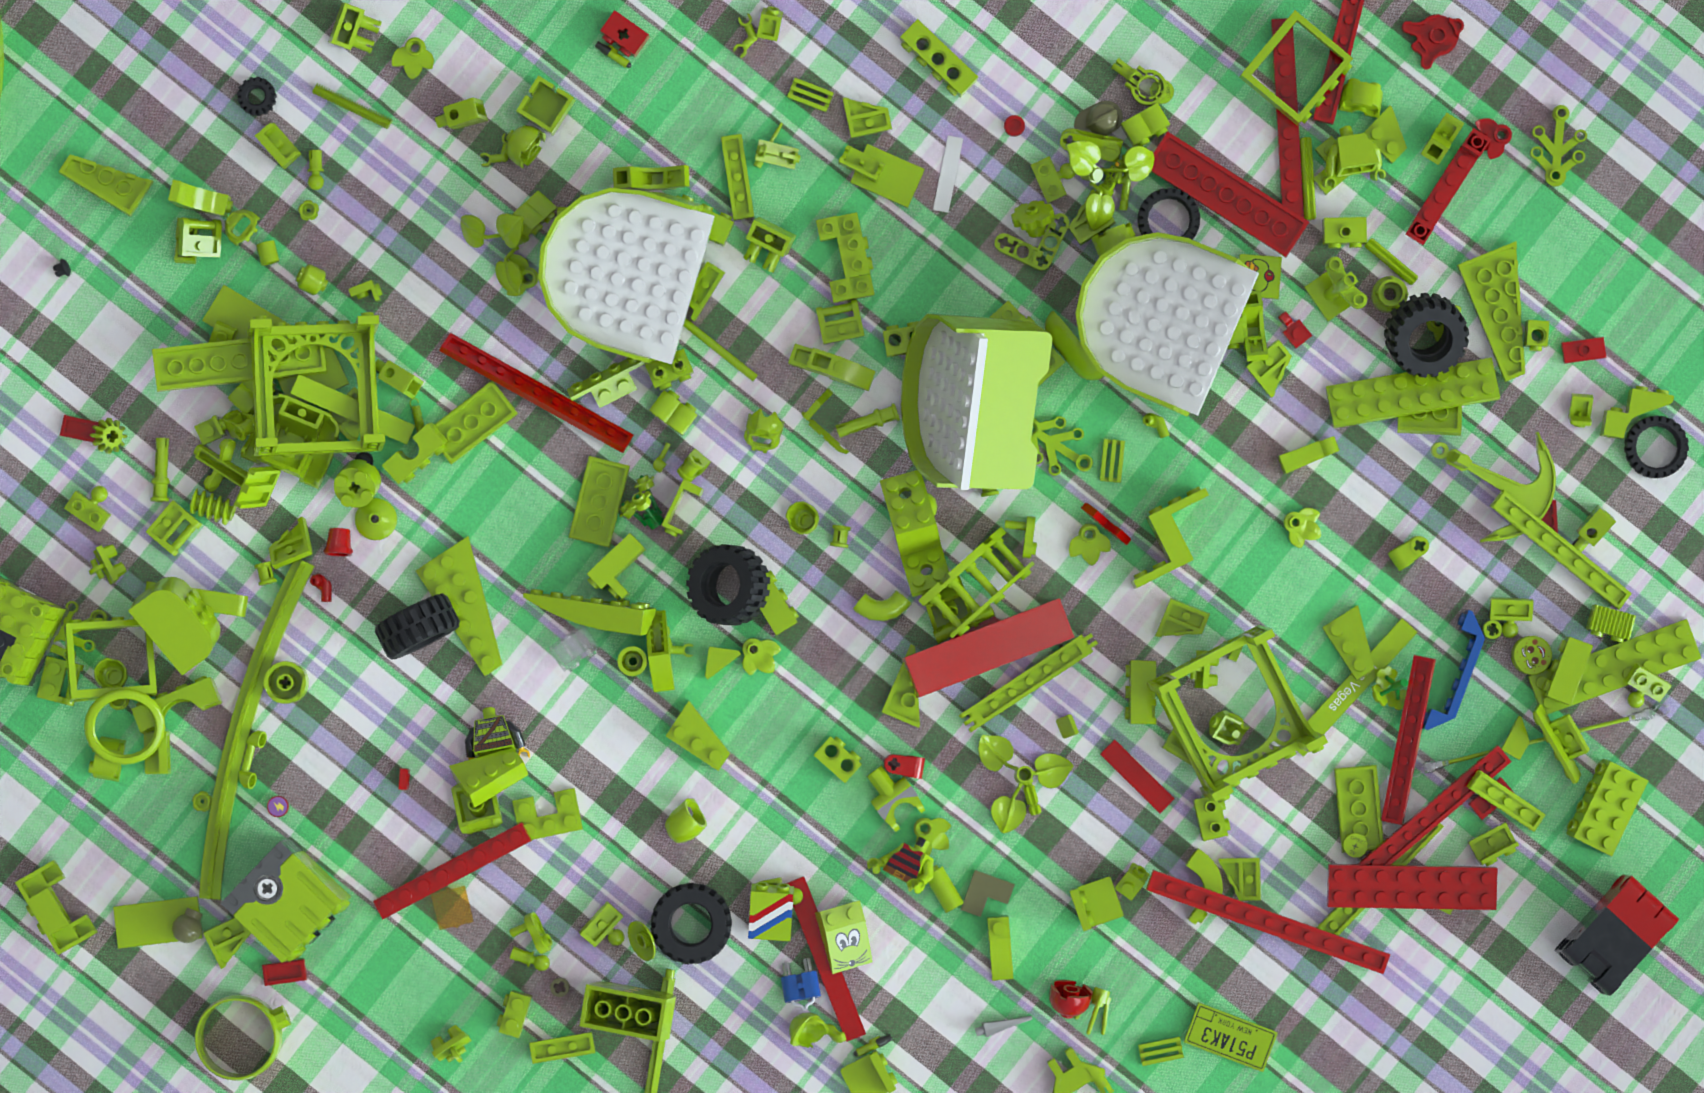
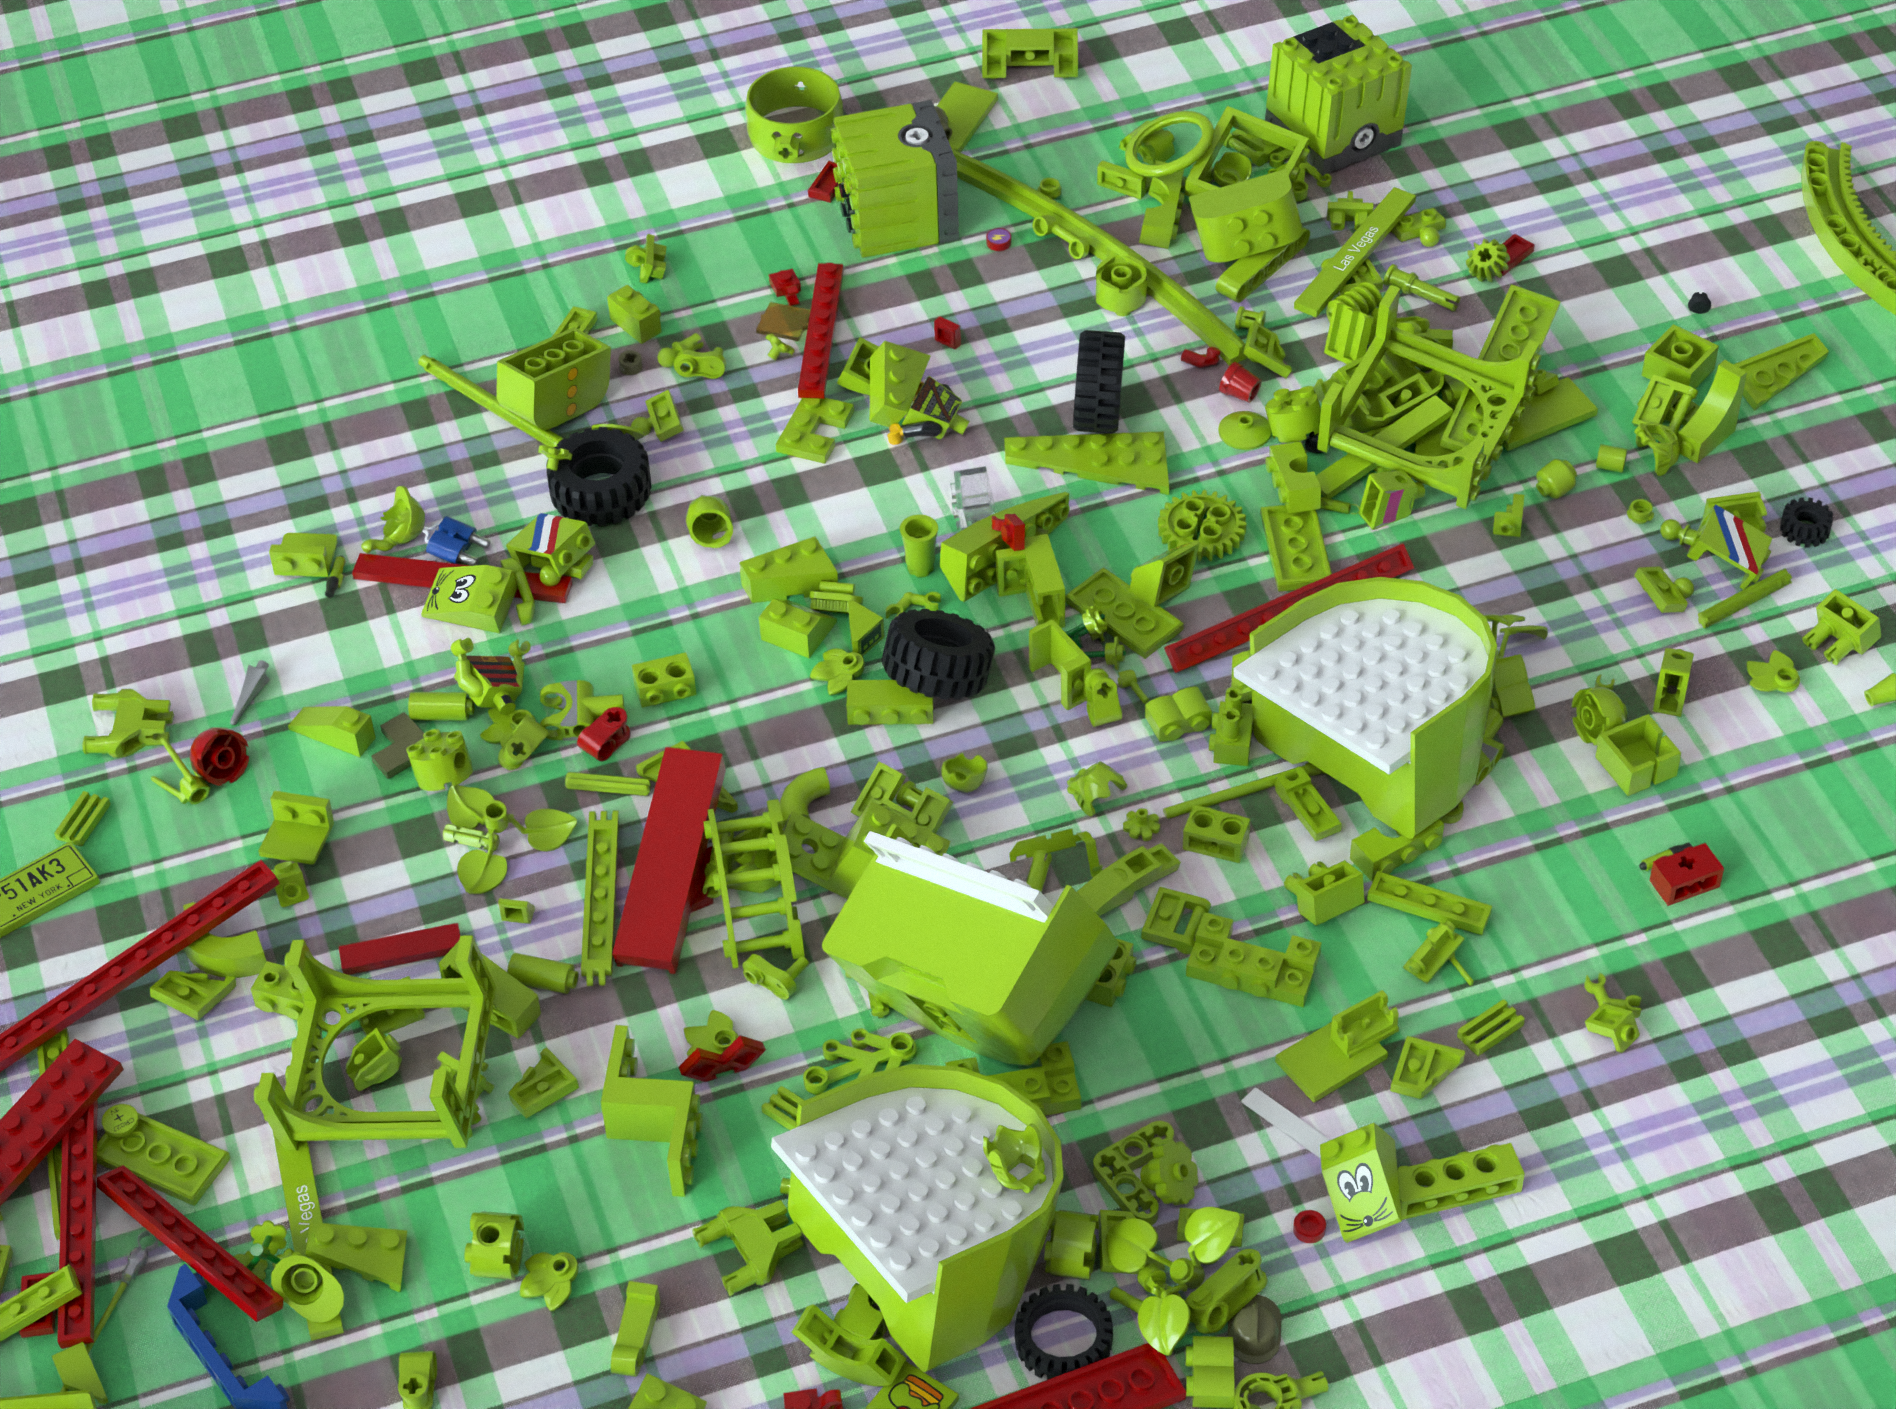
camera: 120 degrees right, 40 degrees down
(144, 249) = (1680, 357): none -> lime slope
(154, 534) = (1354, 252): none -> lime tile
(319, 132) = (1732, 541): none -> lime panel
(377, 160) = (1666, 594): none -> lime plate
(416, 930) = (786, 284): none -> red plate
(485, 890) = (778, 347): none -> lime plant
(496, 511) = (1218, 533): none -> lime gear
(560, 488) = (1164, 574): none -> lime slope
(602, 595) = (1012, 530): none -> red plate
(651, 178) = (1485, 809): lime arch -> none
(659, 654) = (911, 570): lime arch -> none
(703, 693) = (834, 597): none -> lime piece
(709, 950) = (554, 456): none -> lime plant
(737, 706) = (794, 626): none -> lime slope
(763, 332) = (1216, 833): none -> lime brick
(774, 391) = (1141, 824): none -> lime plant
(807, 920) = (527, 608): none -> lime bar
(863, 551) = (882, 789): none -> lime plate
(939, 739) = (608, 783): none -> lime axle
(943, 811) = (523, 742): none -> lime piece
(976, 105) = (1362, 1181): none -> lime slope
(993, 849) = (440, 759): none -> lime brick
(1107, 674) = (543, 973): none -> lime brick
(1126, 282) = (1012, 1148): none -> lime helmet
(1212, 427) = (754, 1239): none -> lime connector
(1270, 371) = (780, 1350): lime wing -> none
(1317, 559) = (495, 1245): none -> lime brick
(1397, 648) = (308, 1288): none -> lime piece

